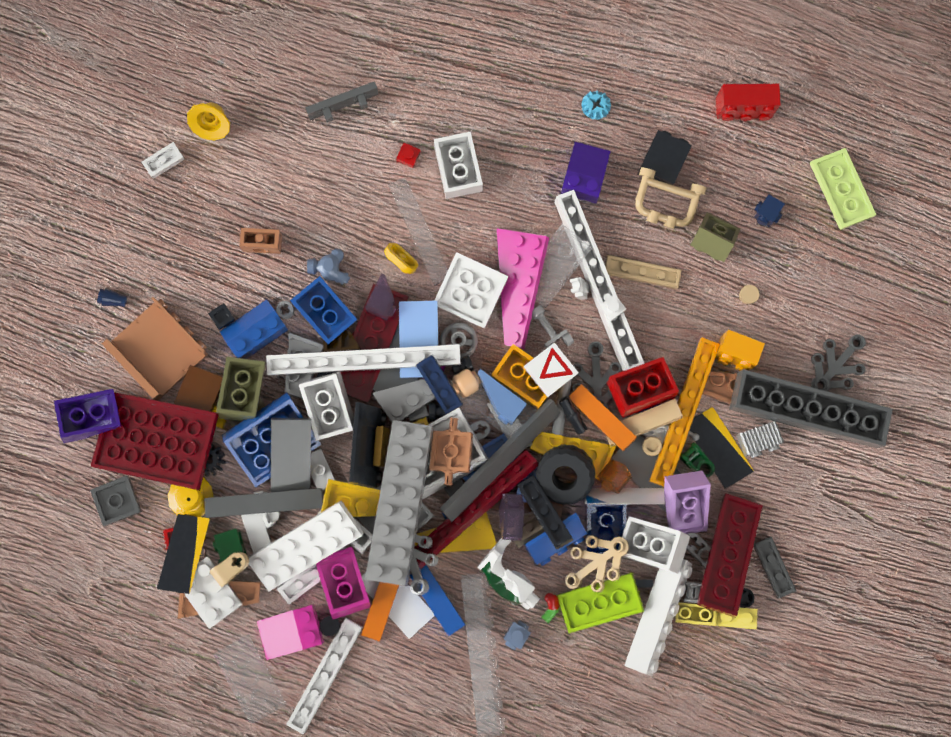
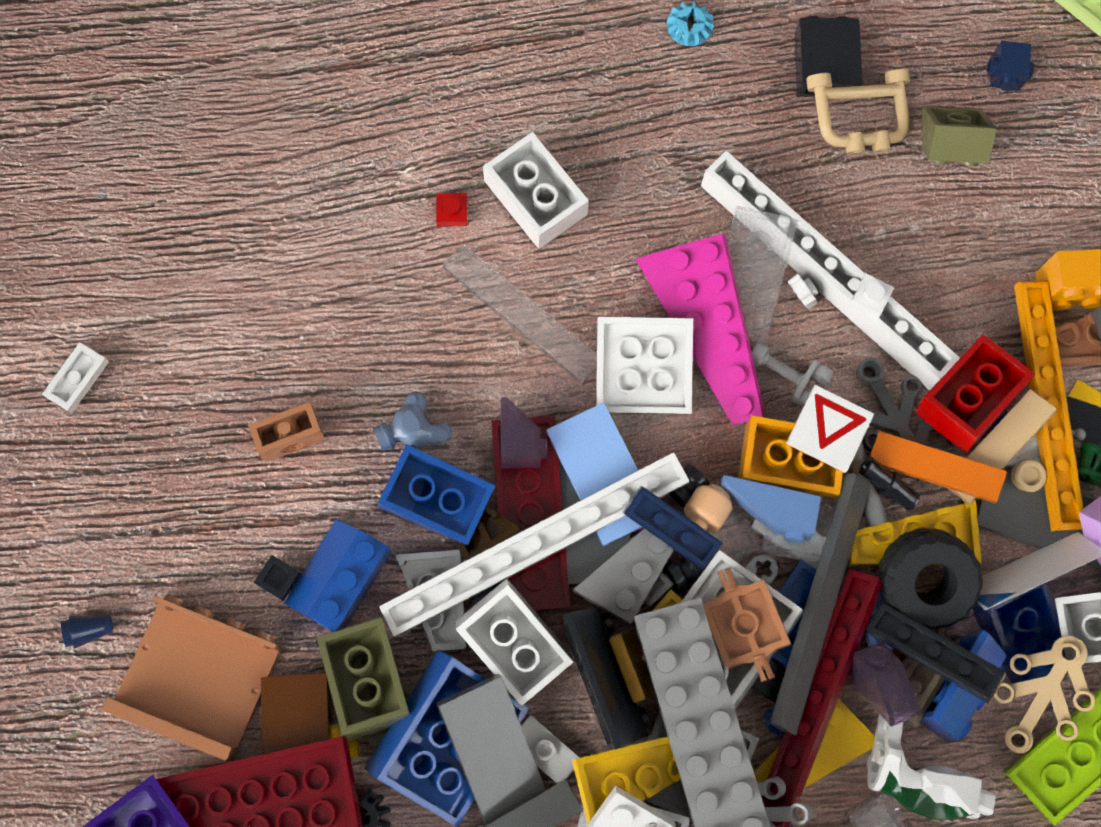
camera: 25 degrees left, 5 degrees down
(208, 125) = (125, 294): yellow hat -> none
(283, 304) = (380, 517): light grey bush -> none
(342, 100) = (298, 187): dark grey hinge -> none
(401, 258) = (515, 365): yellow plate -> none
(455, 334) = (642, 434): light grey piece -> none
(553, 607) = (1010, 795): arm -> none
(586, 172) = (725, 121): dark purple slope -> none
(614, 476) = (1000, 547): clear orange brick -> none
(643, 272) = (882, 228): tan tile -> none
(749, 294) = (1044, 195): tan tile -> none

